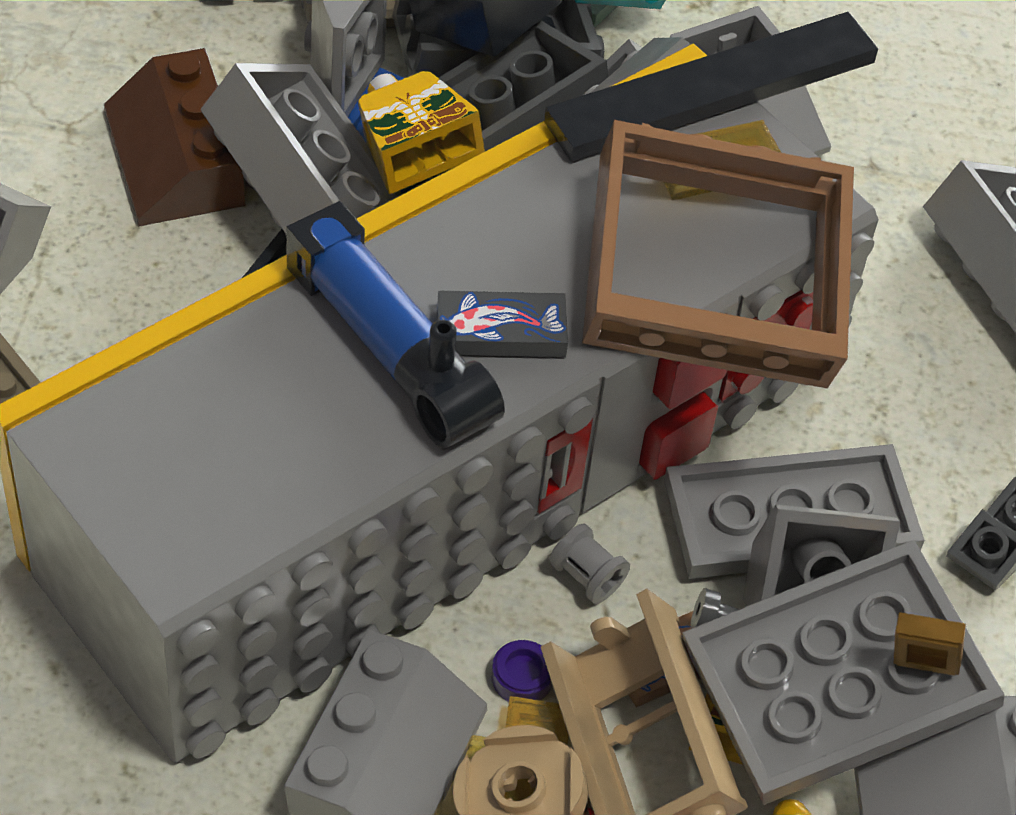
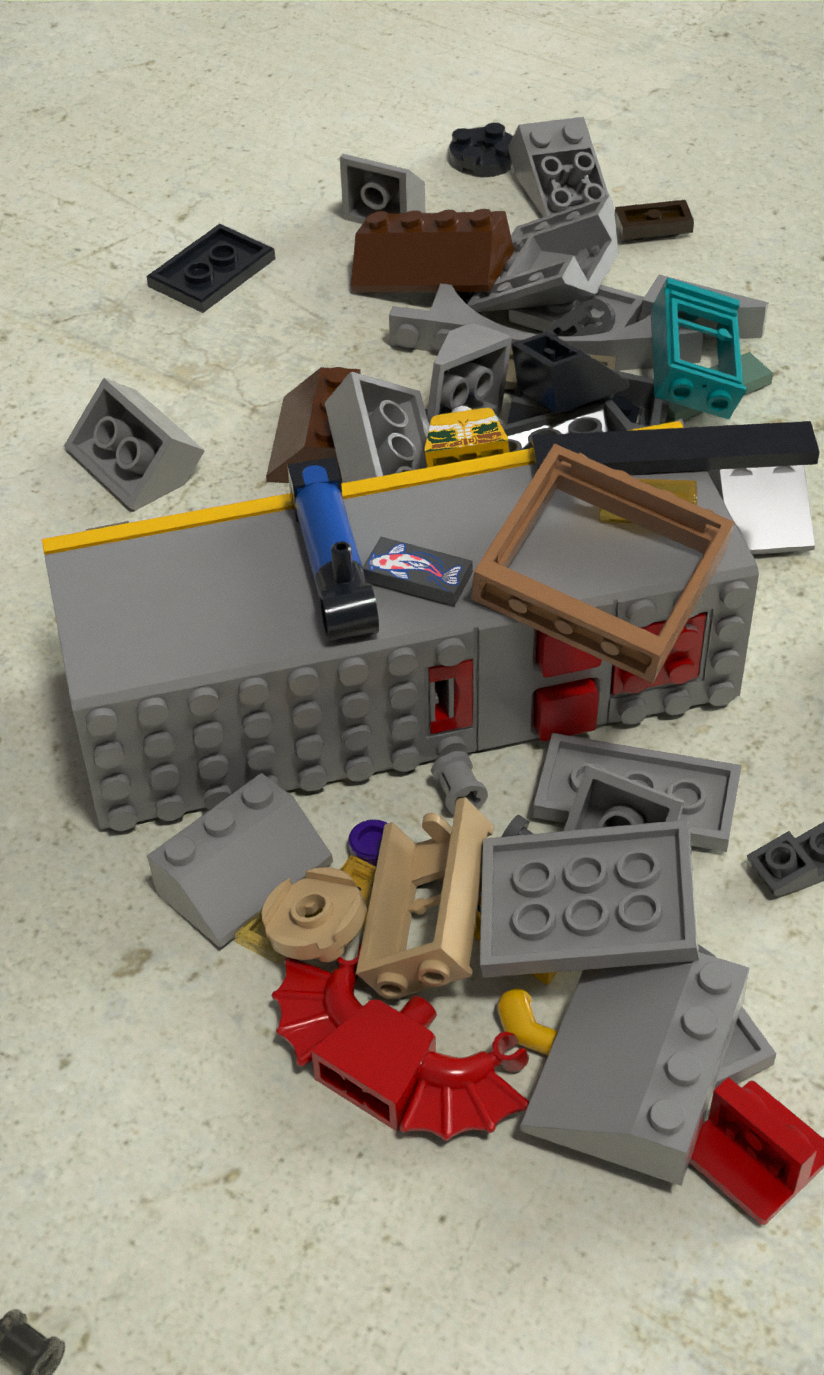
camera: 30 degrees right, 5 degrees down
(929, 643) = (649, 890): pearl gold tile -> none

